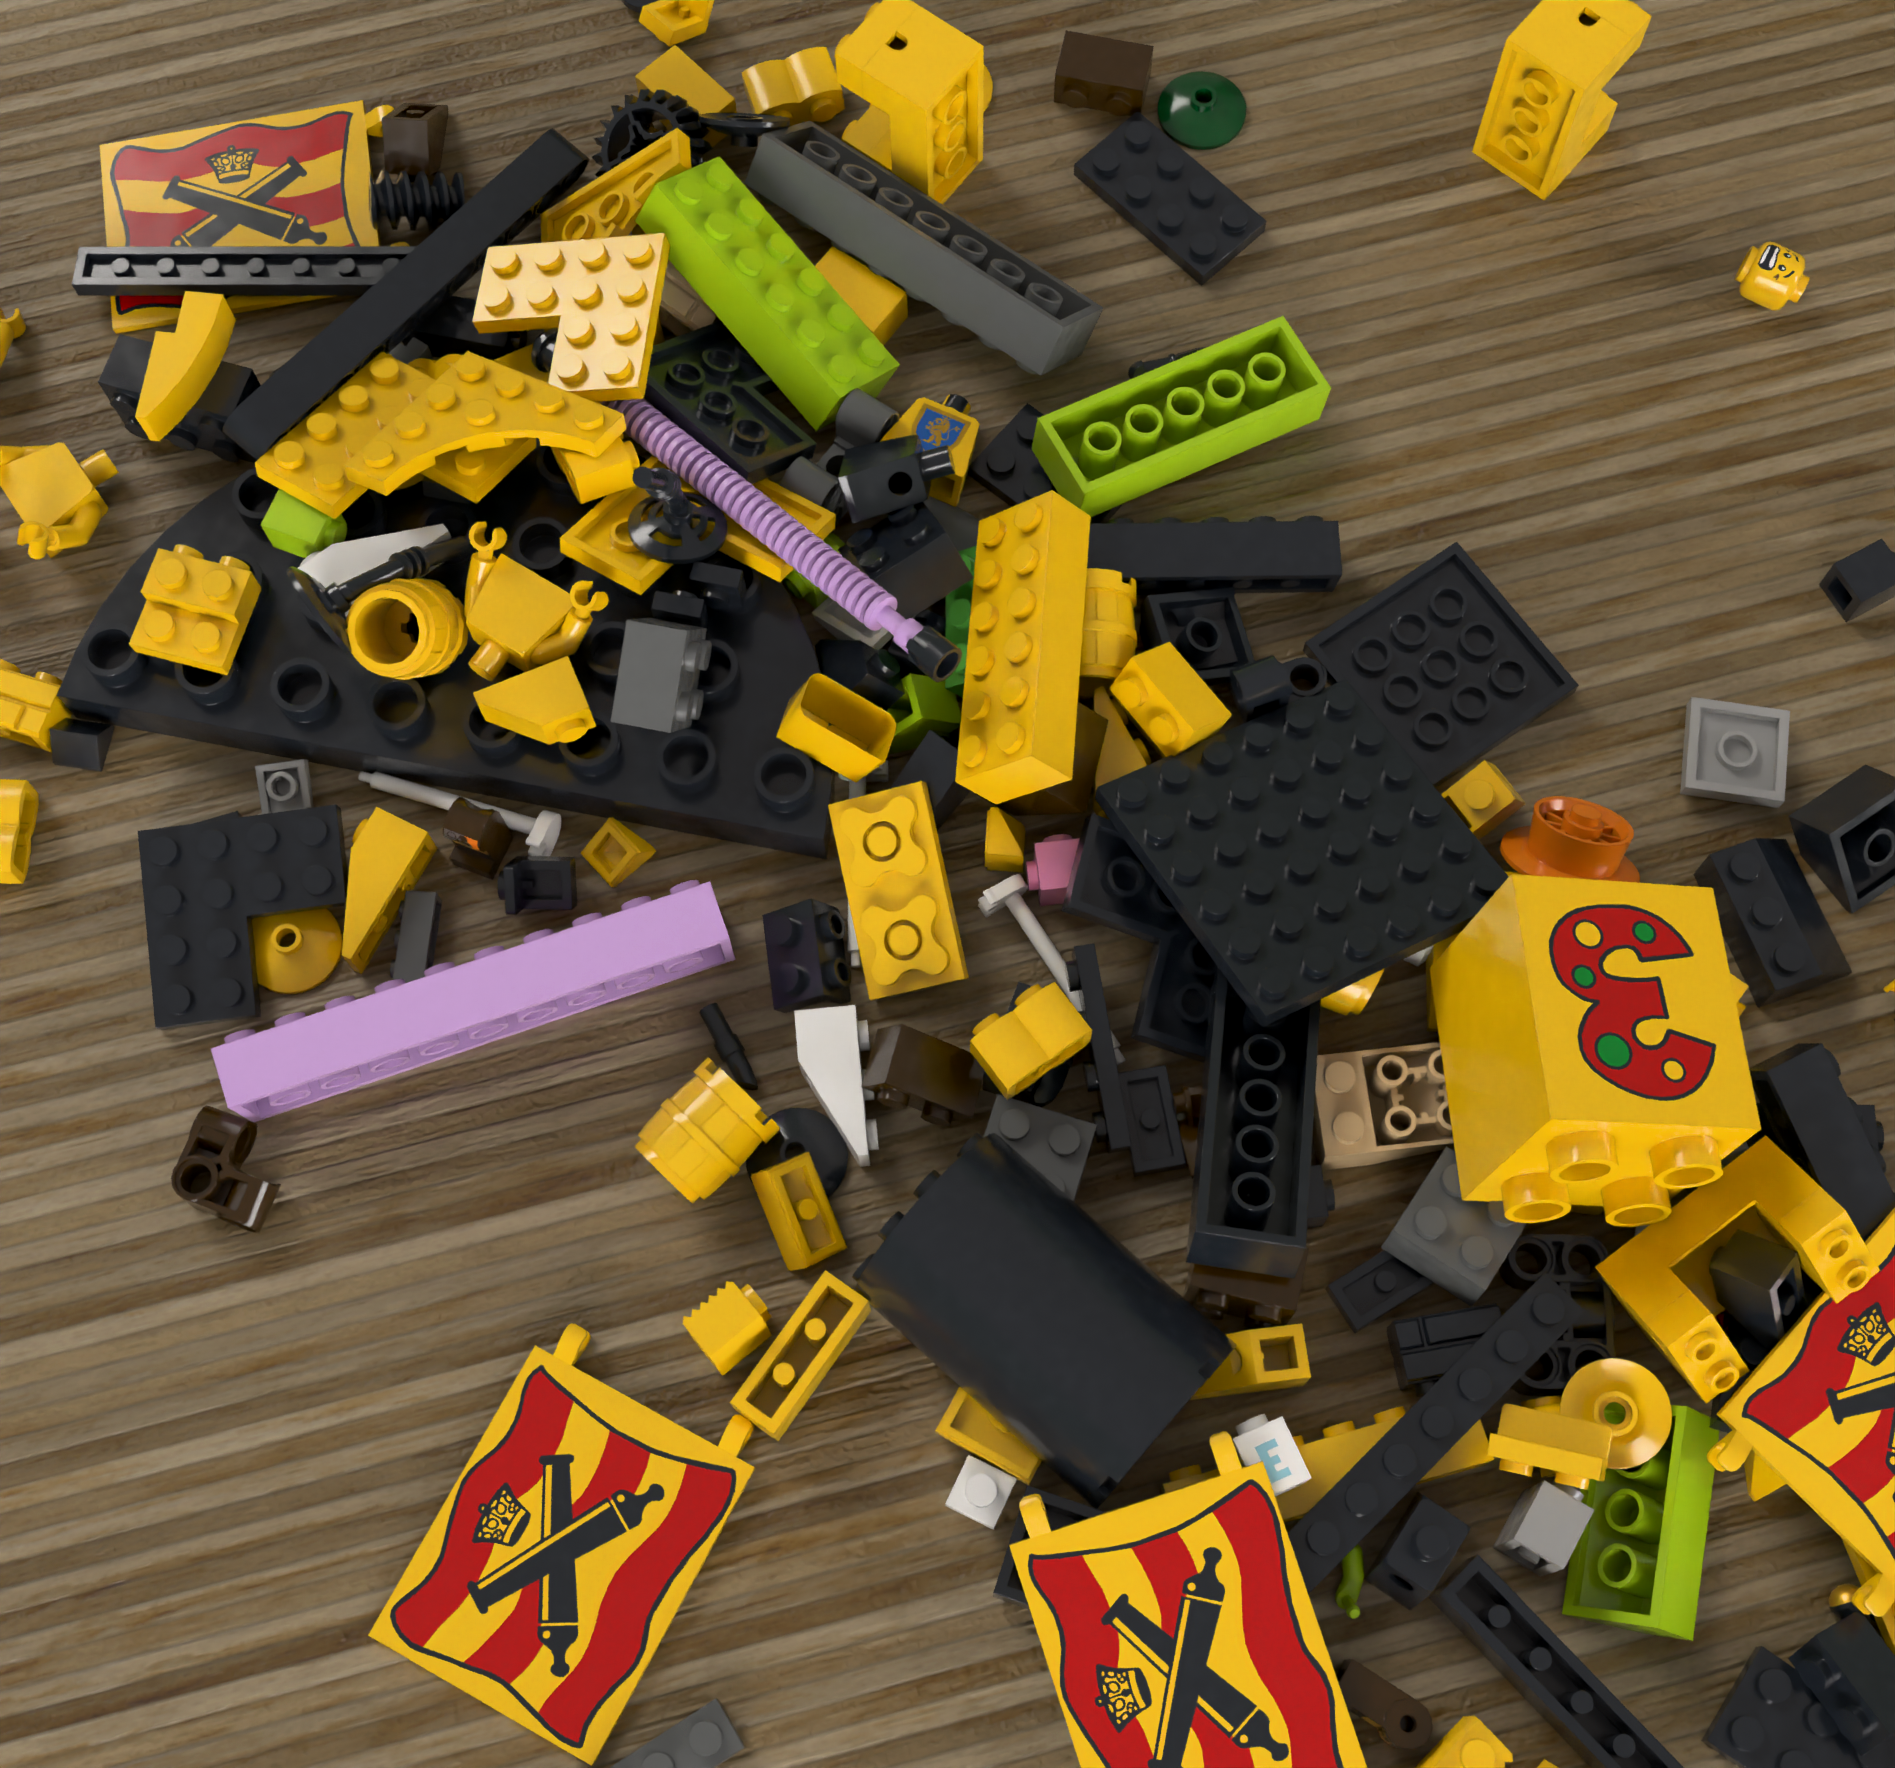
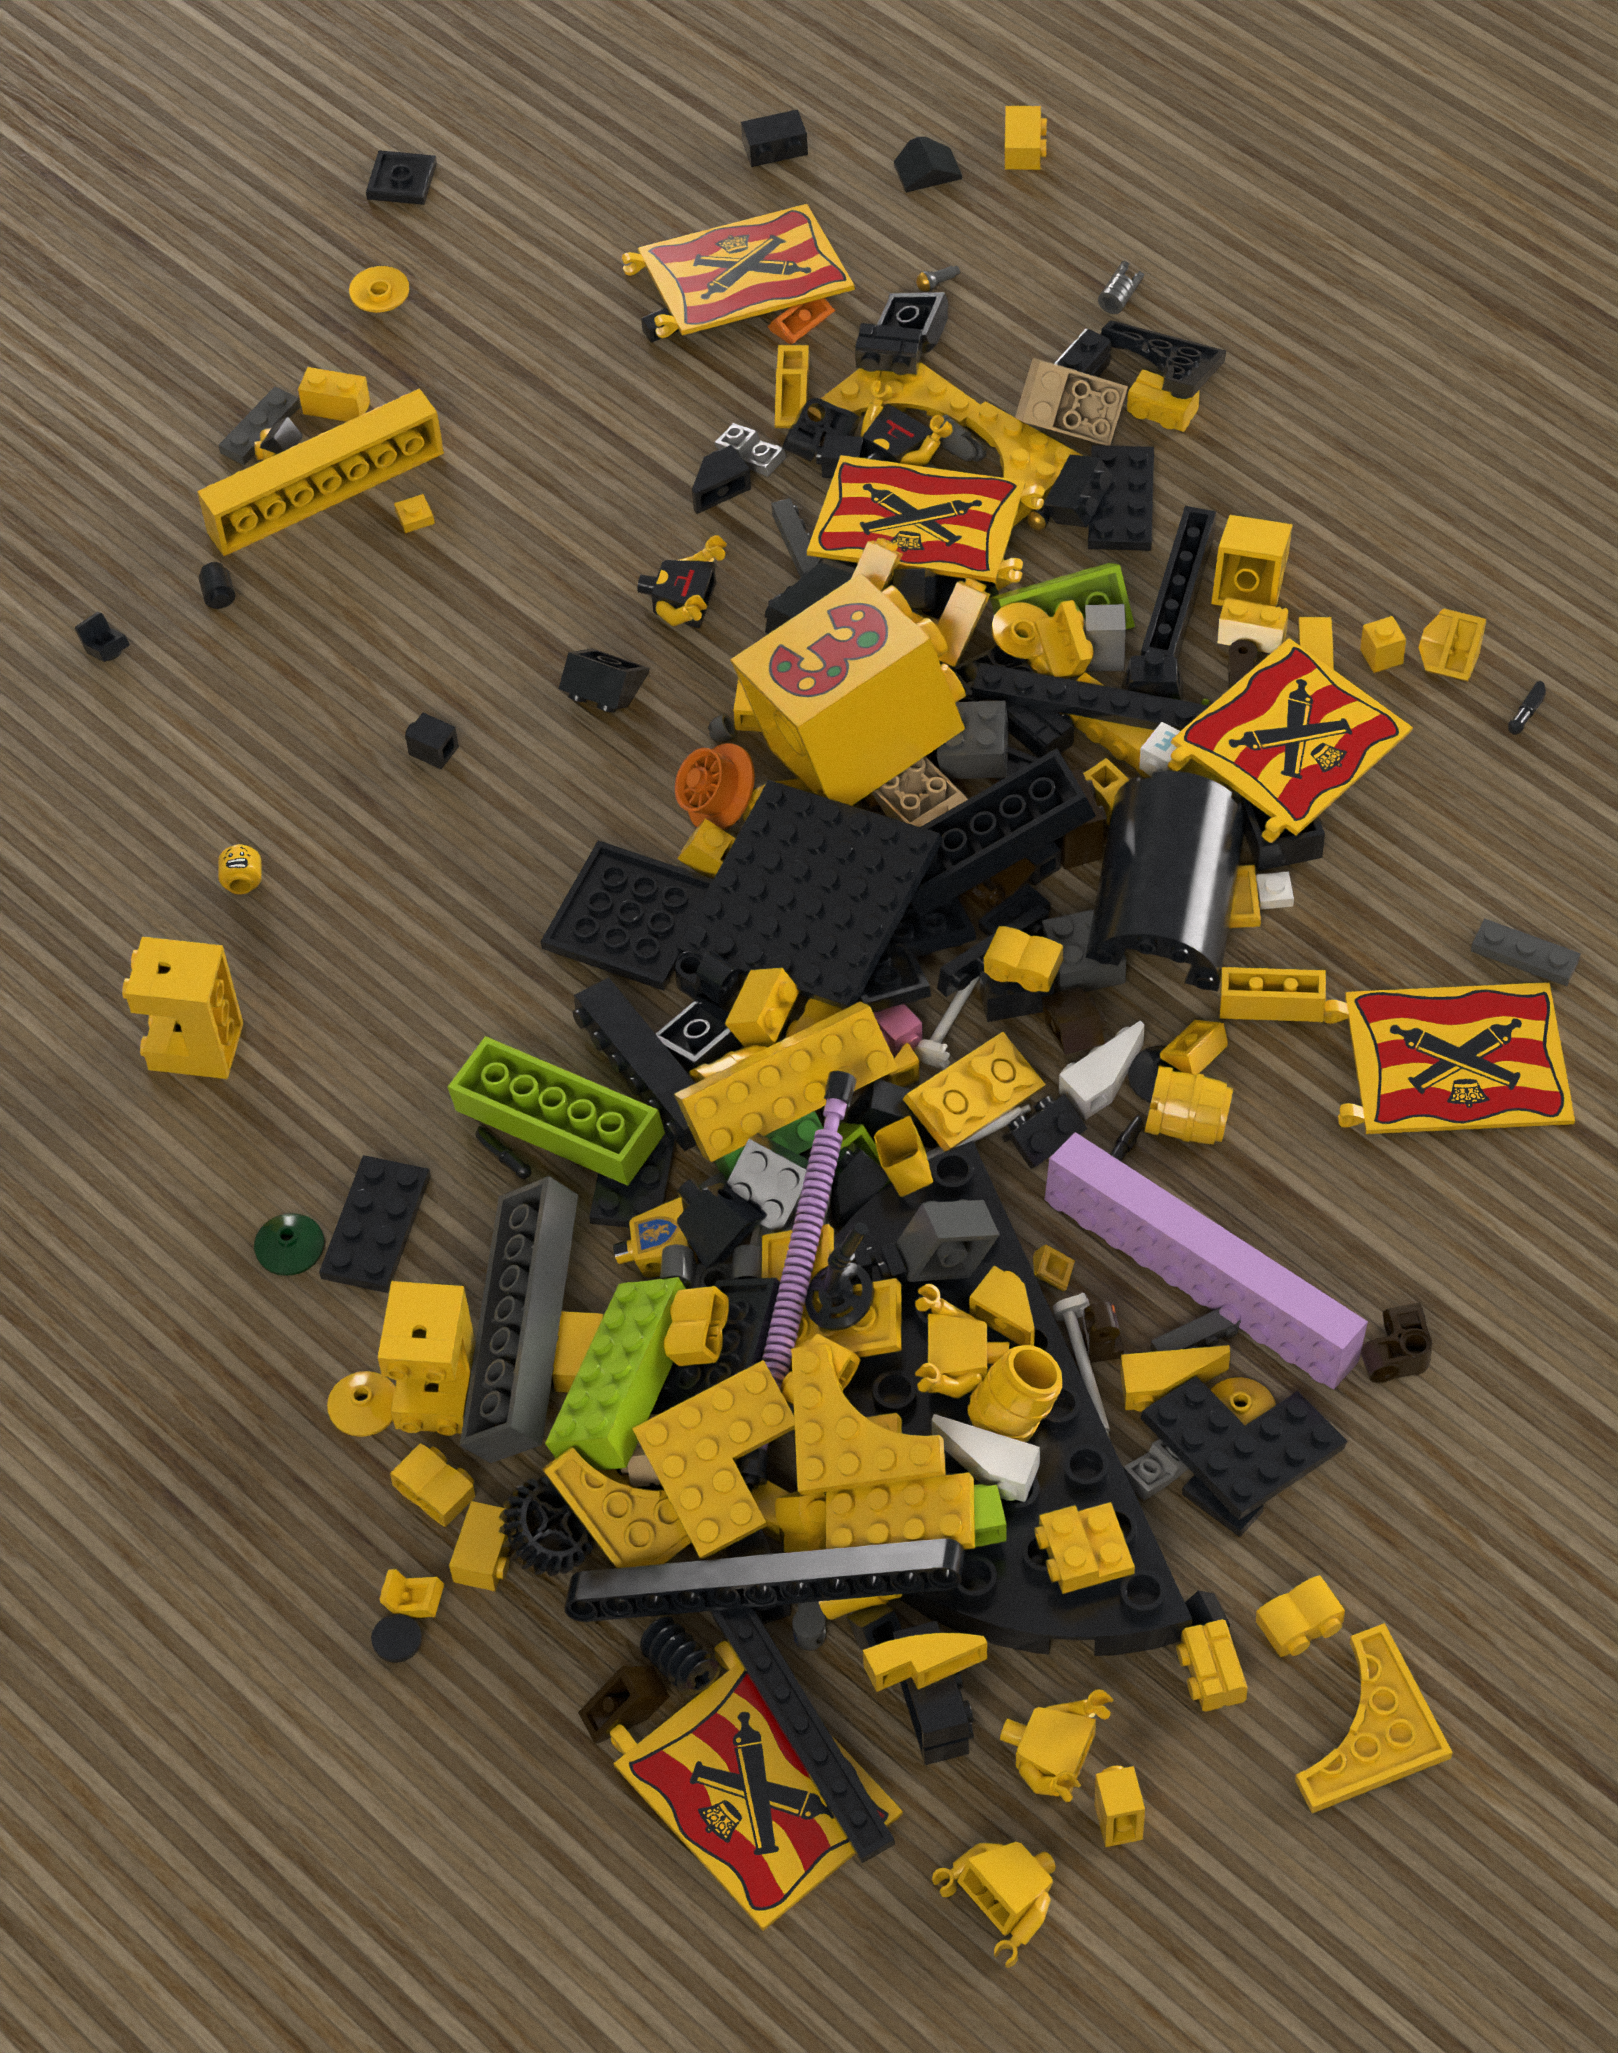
camera: 120 degrees left, 15 degrees down
(331, 603) = (981, 1408): black dish -> none
(538, 883) = (1102, 1286): black bracket -> none
(729, 1325) = (1284, 1031): yellow brick -> none
(743, 127) = (494, 1466): black dish -> none
(760, 379) = (696, 1326): none -> yellow brick
(1102, 74) = (303, 1303): dark brown brick -> none
(1735, 752) = (588, 755): light grey plate -> none
(1771, 920) = (685, 696): black slope -> none

